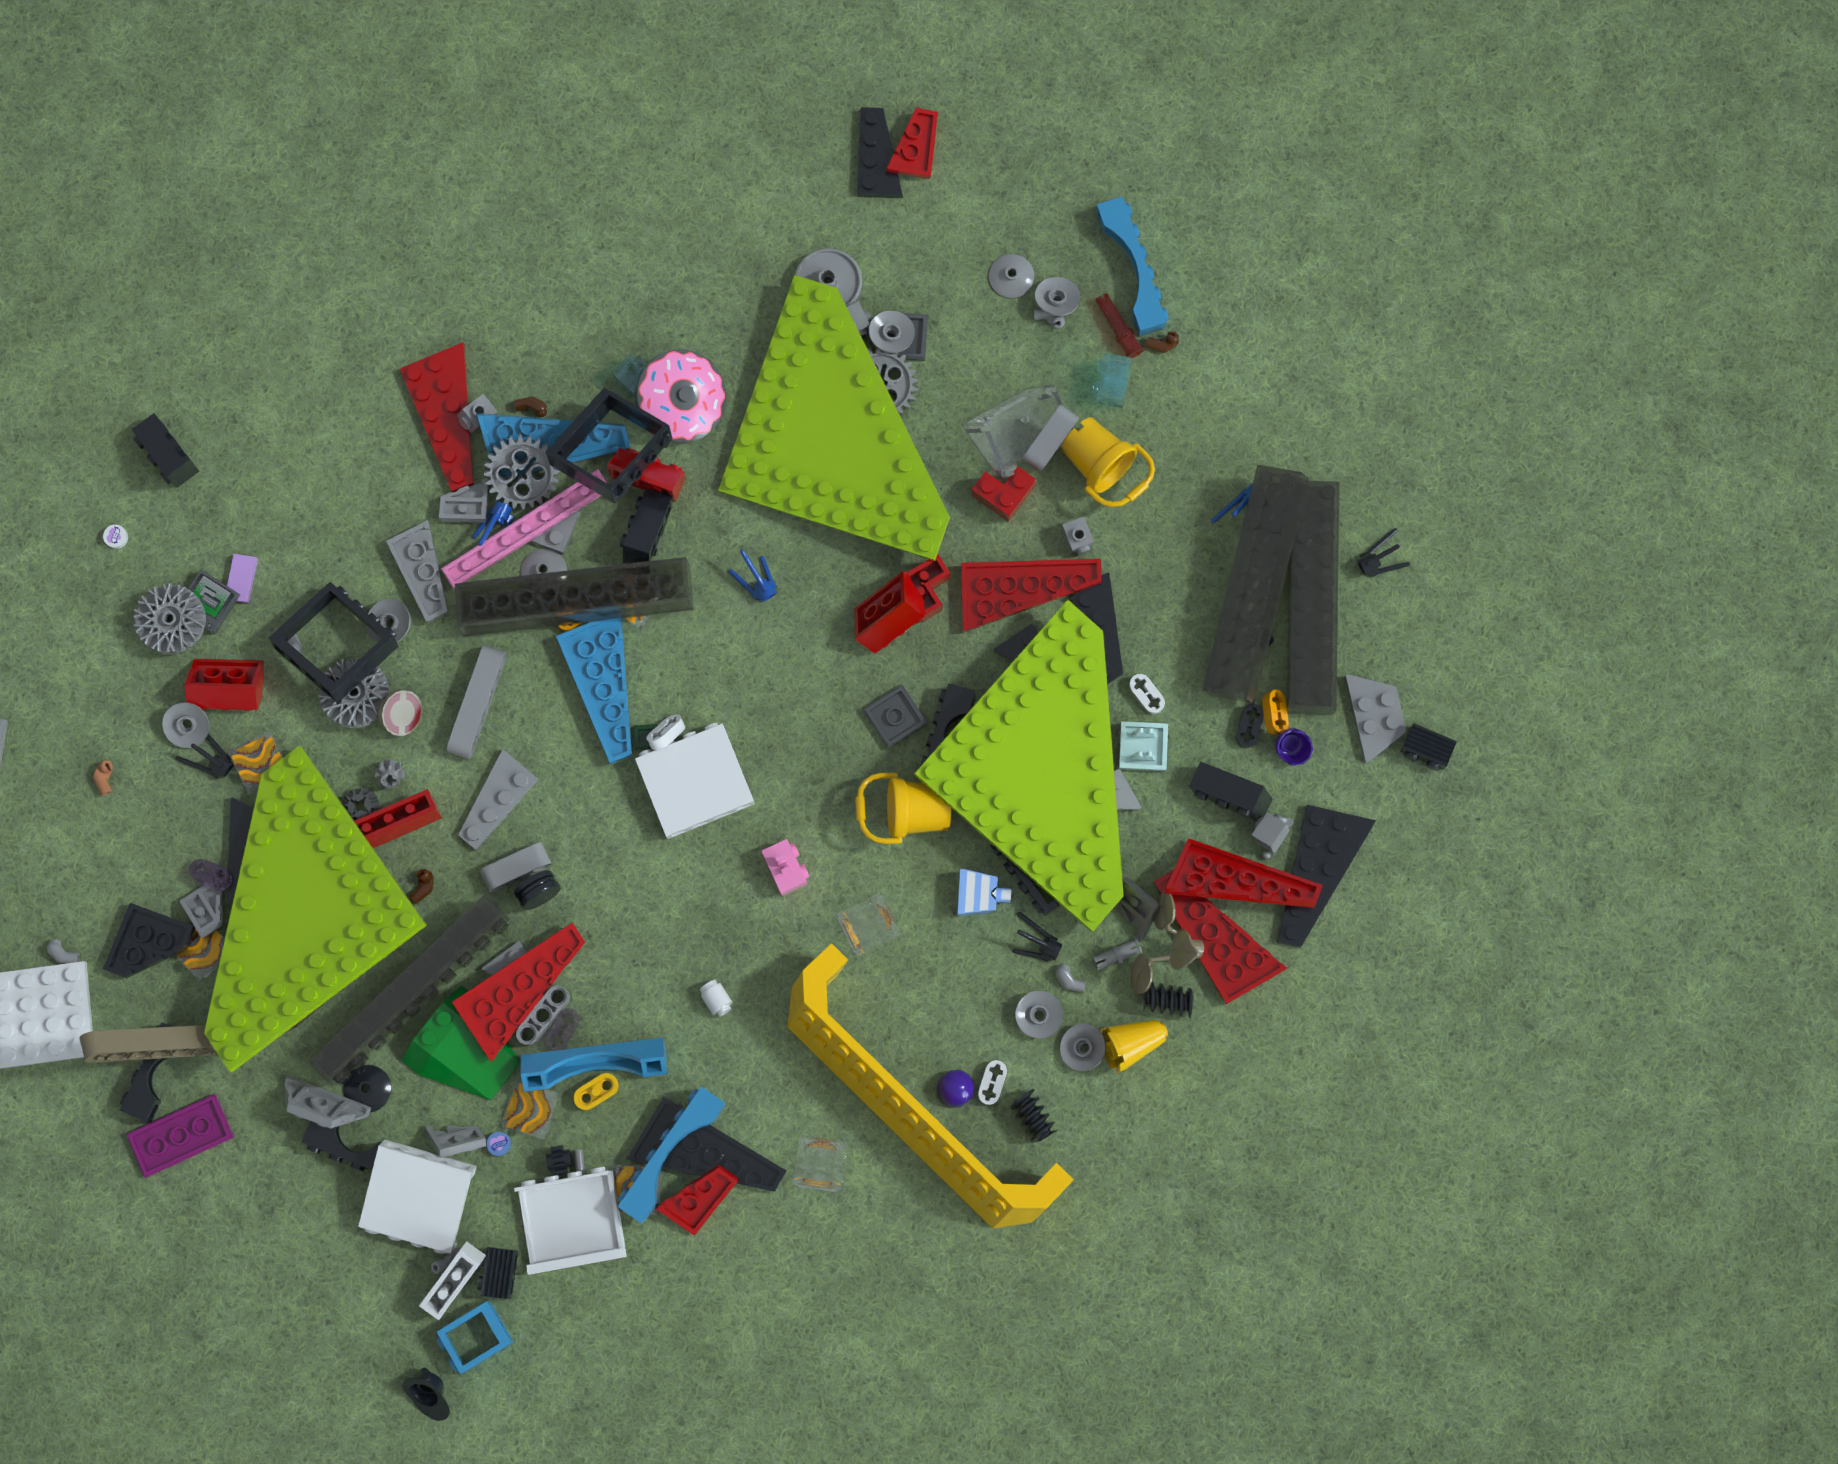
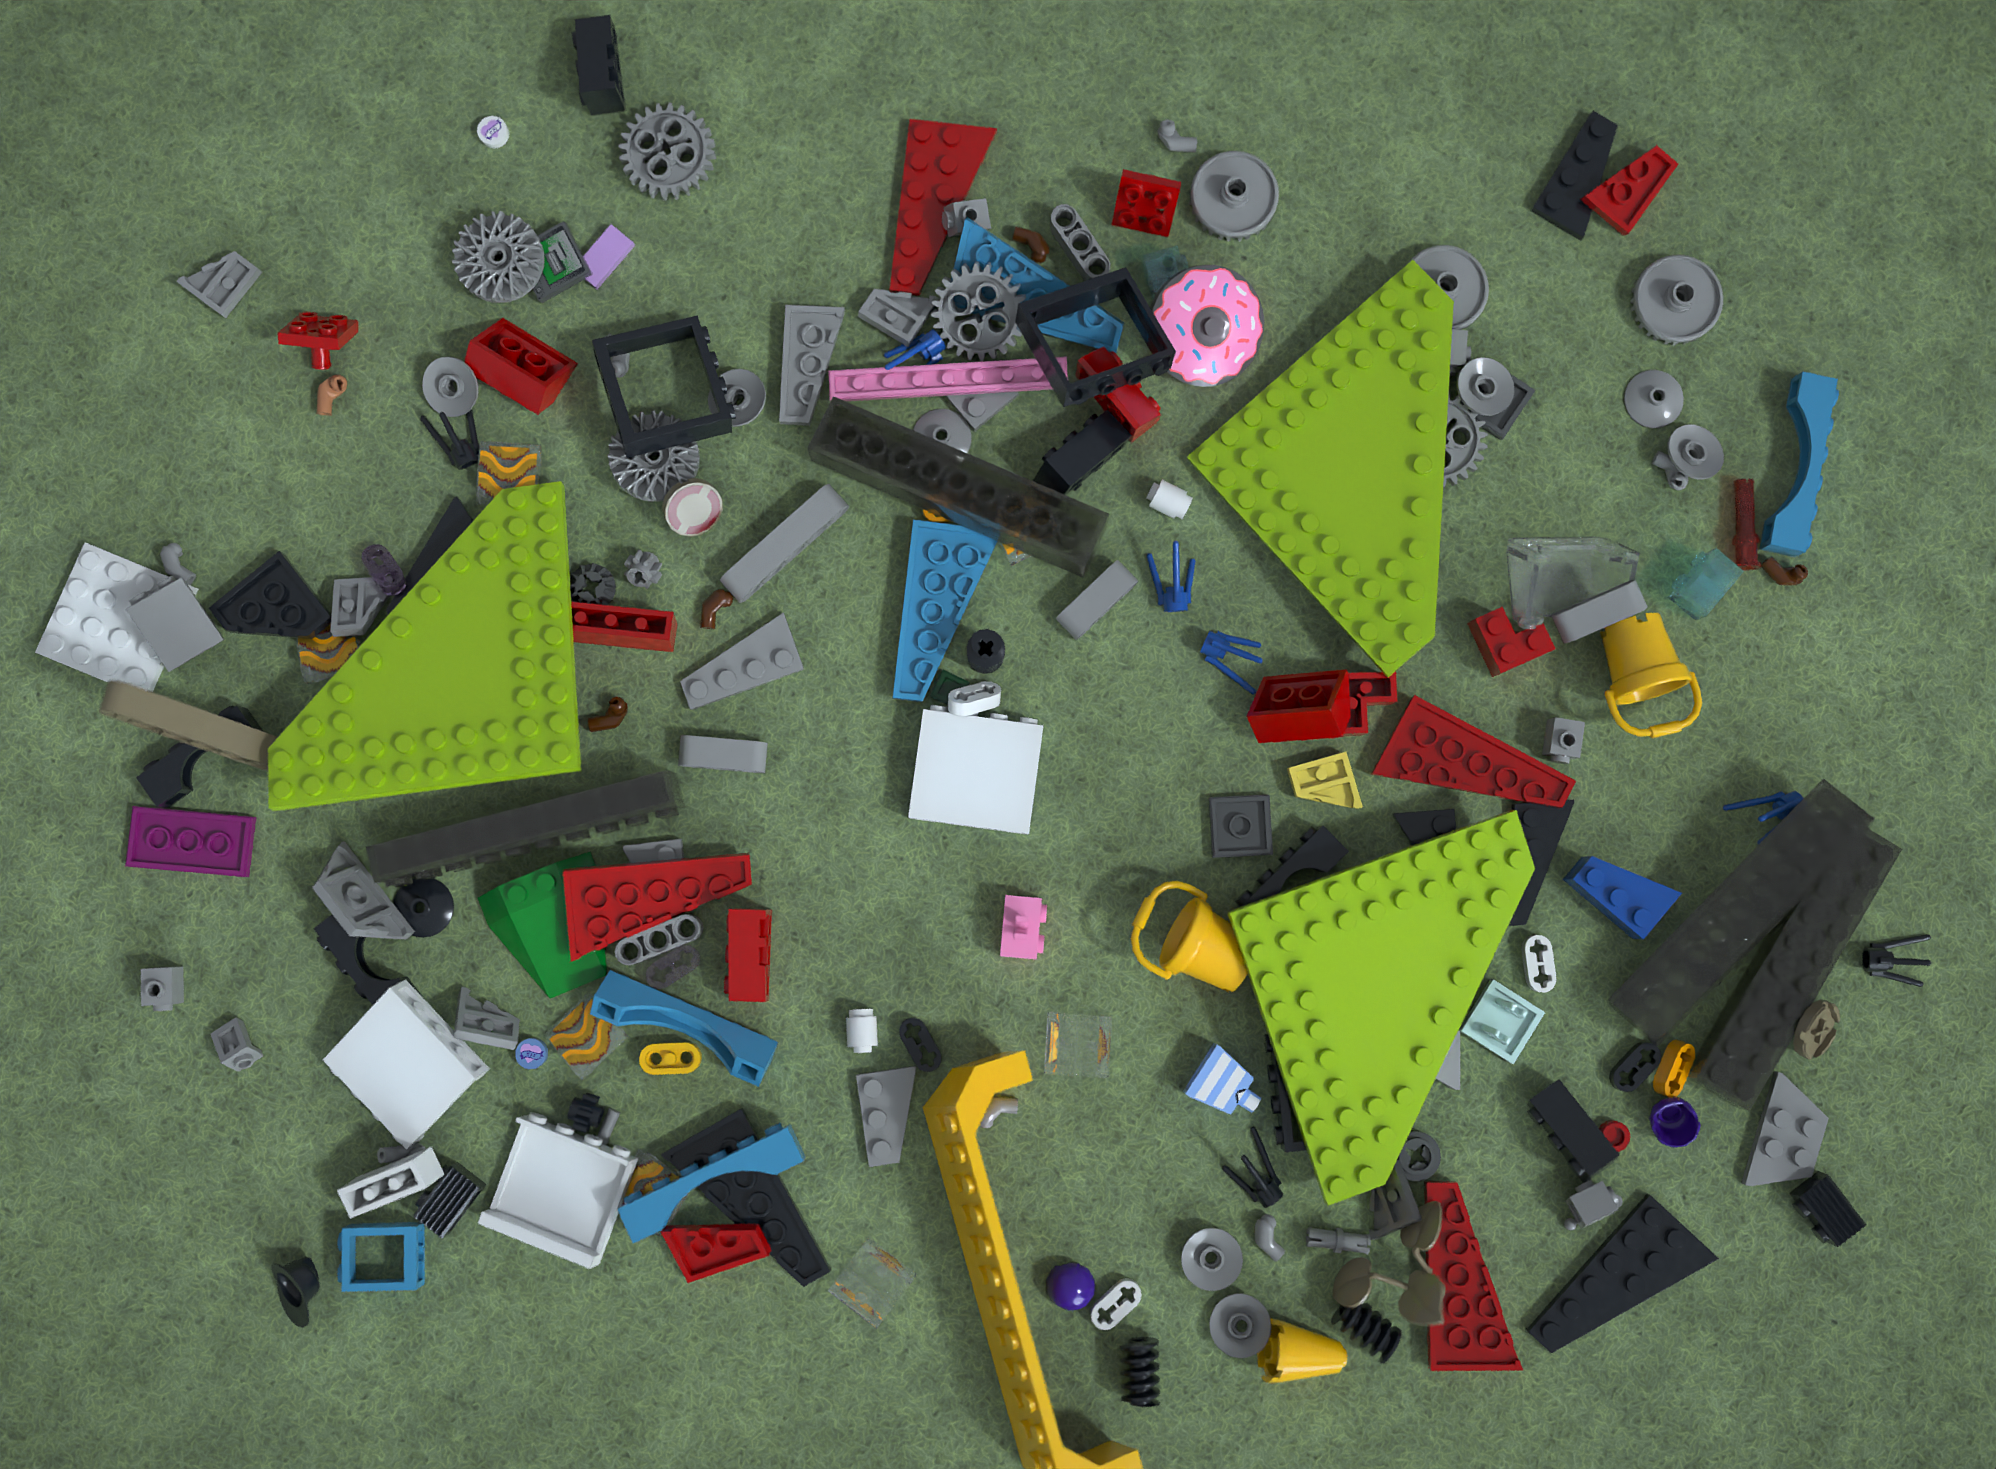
camera: 25 degrees right, 5 degrees up
(75, 740) = (319, 334): none -> red plate
(87, 990) = (174, 622): none -> light grey brick
(218, 1244) = (162, 987): none -> light grey brick
(228, 471) = (679, 174): none -> light grey gear
(291, 1254) = (235, 1046): none -> light grey bracket
(450, 771) = (712, 605): none -> reddish brown arm
(537, 890) = (731, 795): black head -> none
(556, 382) = (1077, 232): none -> light grey beam
(587, 283) = (1173, 140): none -> light grey arm
(591, 333) = (1146, 198): none -> red plate
(609, 990) = (748, 954): none -> red wedge
(650, 688) = (986, 639): none -> black piece
(654, 312) = (1230, 214): none -> light grey wheel
(711, 620) = (1097, 599): none -> light grey beam
(722, 525) = (1169, 499): none -> white brick
(763, 1044) = (884, 1112): none -> light grey wing
(765, 980) = (927, 1041): none -> black beam
(811, 604) = (1218, 644): none -> blue plant
(835, 999) = (997, 1106): none -> light grey arm
(935, 653) = (1326, 781): none -> light yellow wing
(984, 216) = (1663, 312): none -> light grey wheel
(1145, 861) = (1429, 1151): none -> dark grey gear
(1174, 617) = (1622, 896): none -> blue wedge
(1223, 875) = (1510, 1224): red wing -> none
(1263, 777) = (1616, 1133): none -> red tile
(1352, 632) = (1815, 1029): none -> dark tan tile

